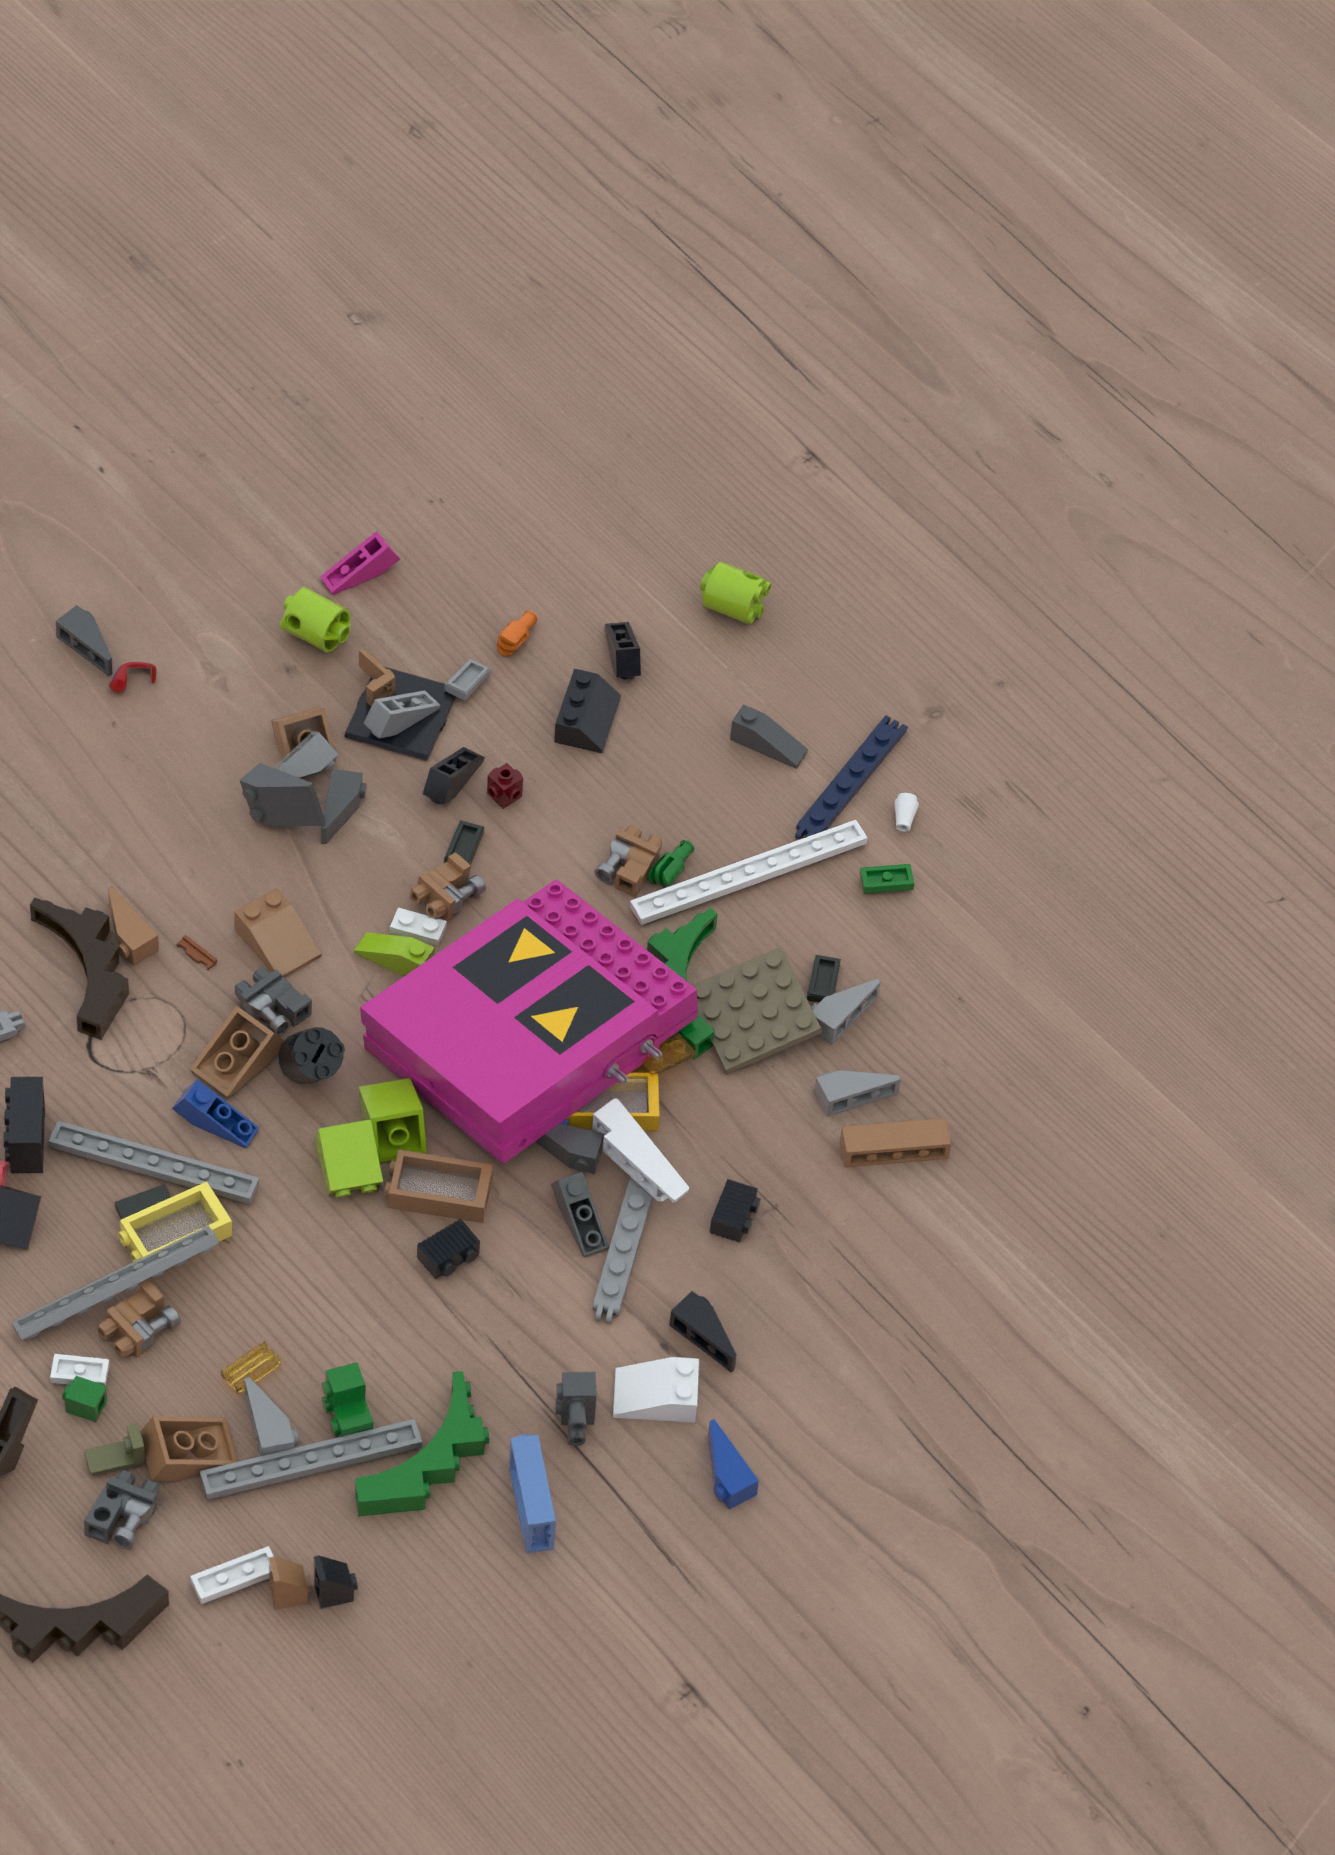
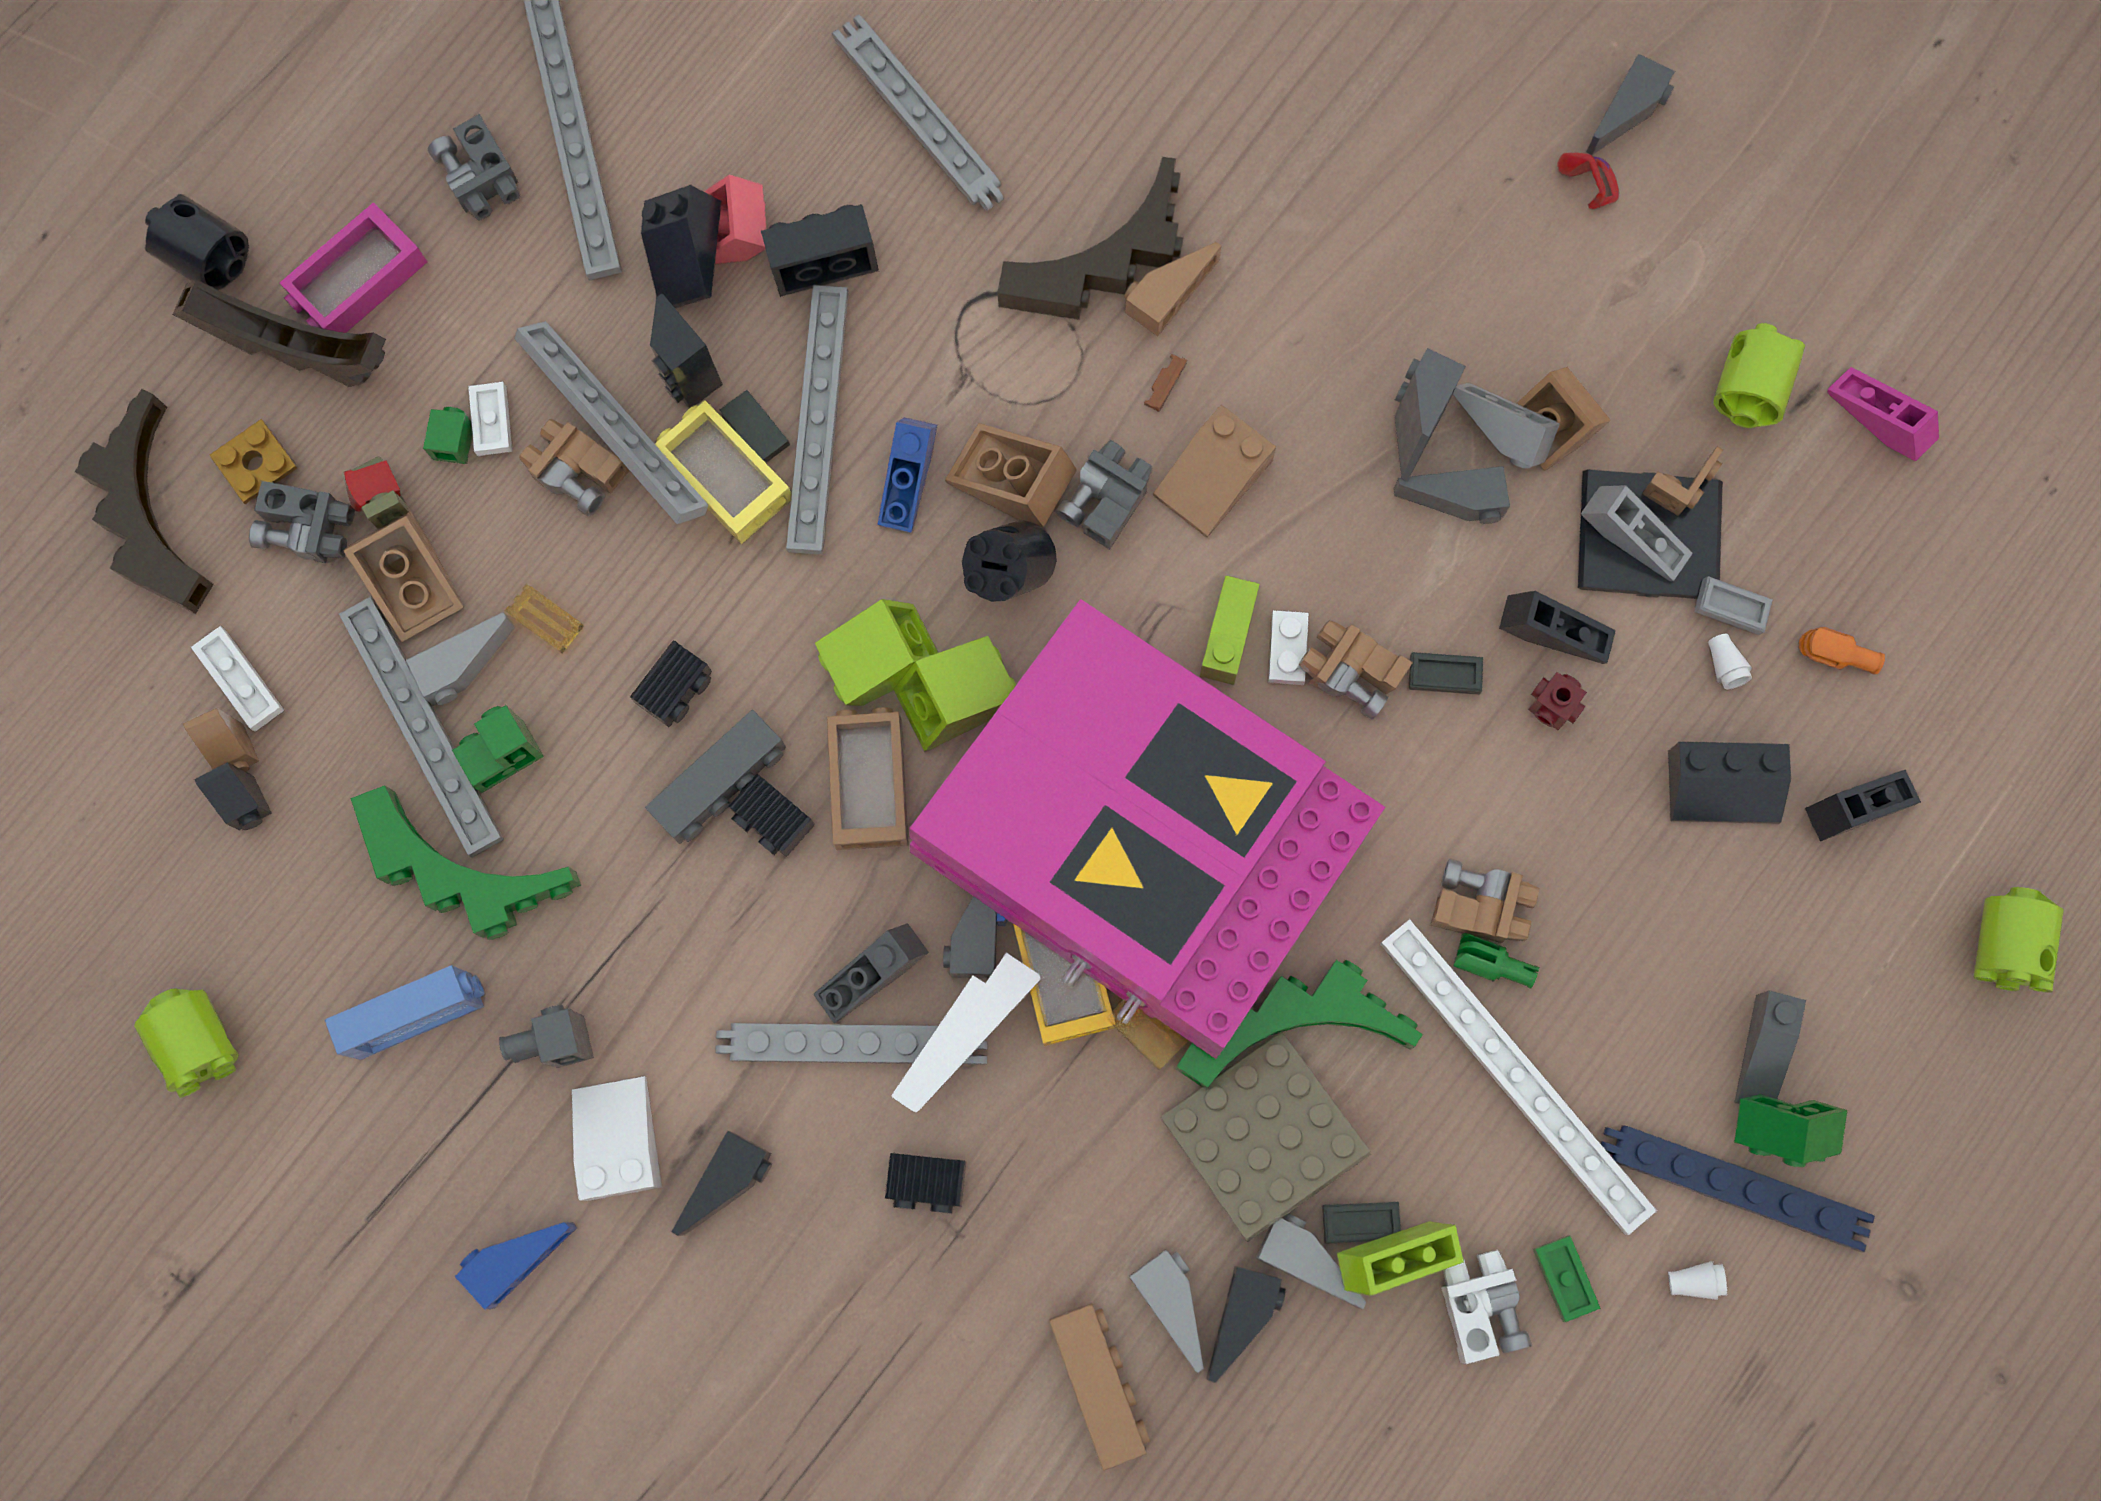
camera: 85 degrees right, 25 degrees up
(59, 1523) = (237, 453): none -> pearl gold piece
(82, 1219) = (681, 356): none -> black slope
(111, 1455) = (368, 482): none -> red tile
(330, 1291) = (672, 684): none -> black brick
(410, 1277) = (716, 777): none -> dark grey brick
(506, 691) = (1729, 663): none -> white cone
(513, 1639) = (186, 1039): none -> lime cylinder
(822, 735) = (1791, 1131): none -> green brick
(853, 951) = (1400, 1258): none -> lime brick
(869, 1052) = (1246, 1312): none -> black slope
(894, 925) = (1475, 1300): none -> white hips

